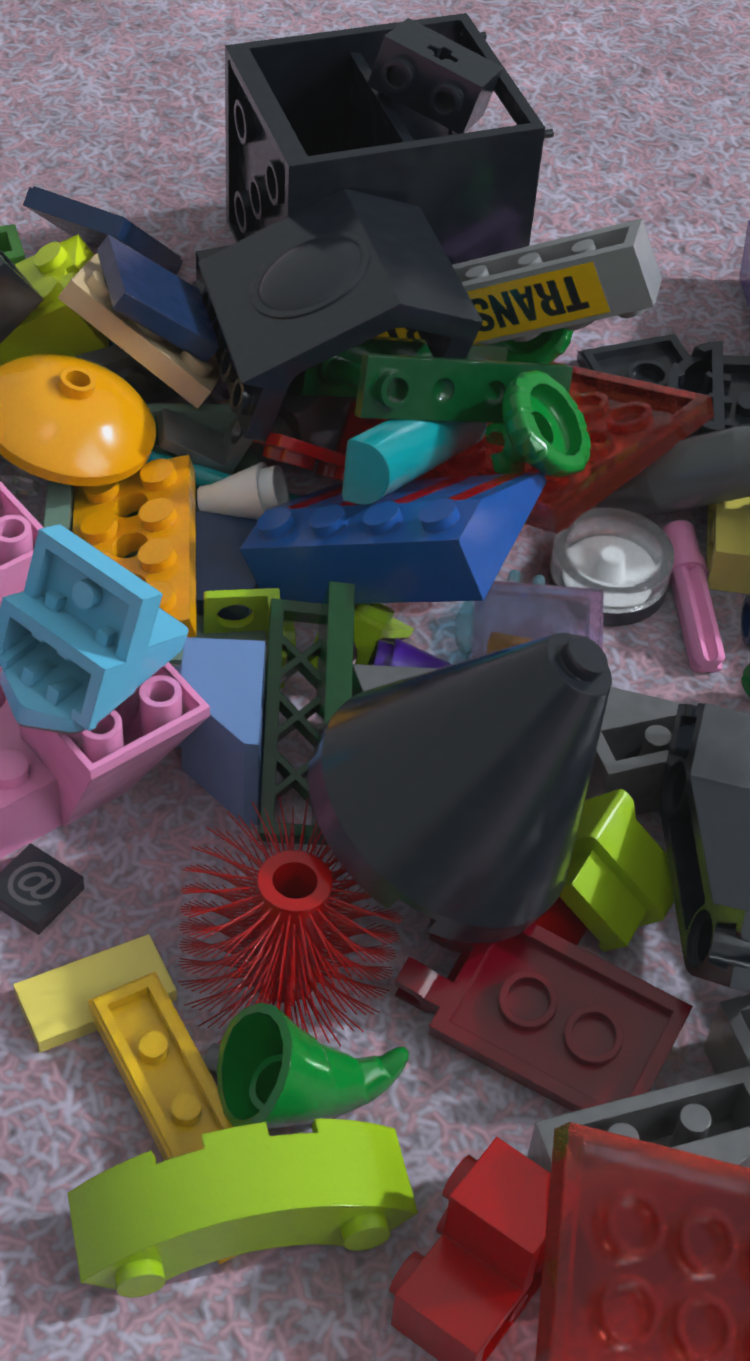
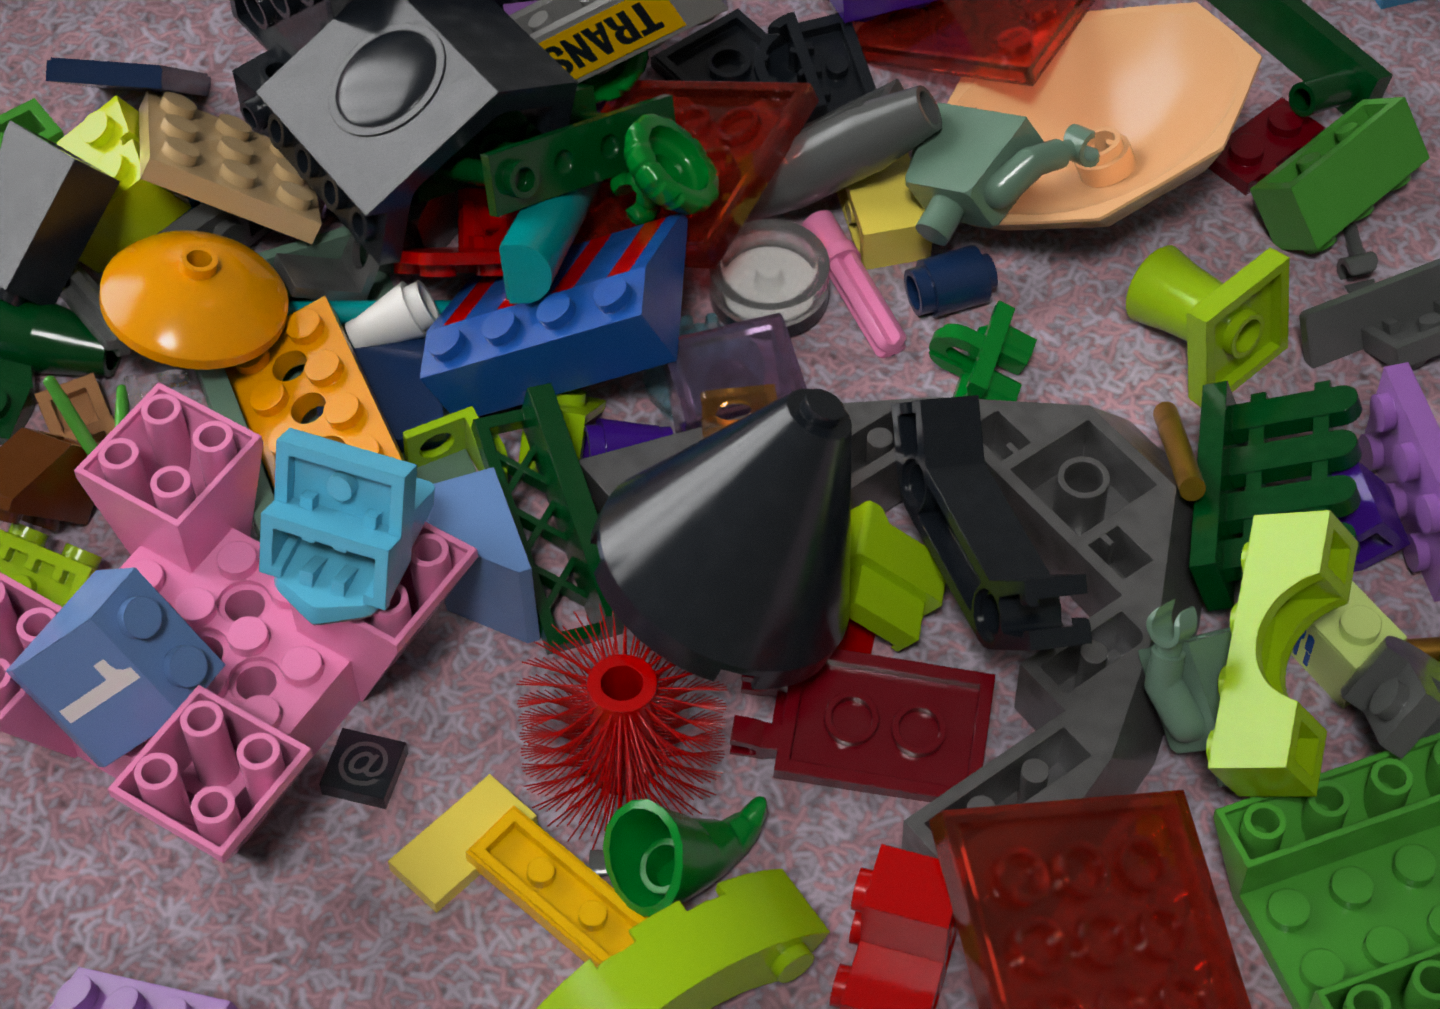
camera: 15 degrees left, 5 degrees up
(157, 299) = (234, 146): dark blue tile -> none

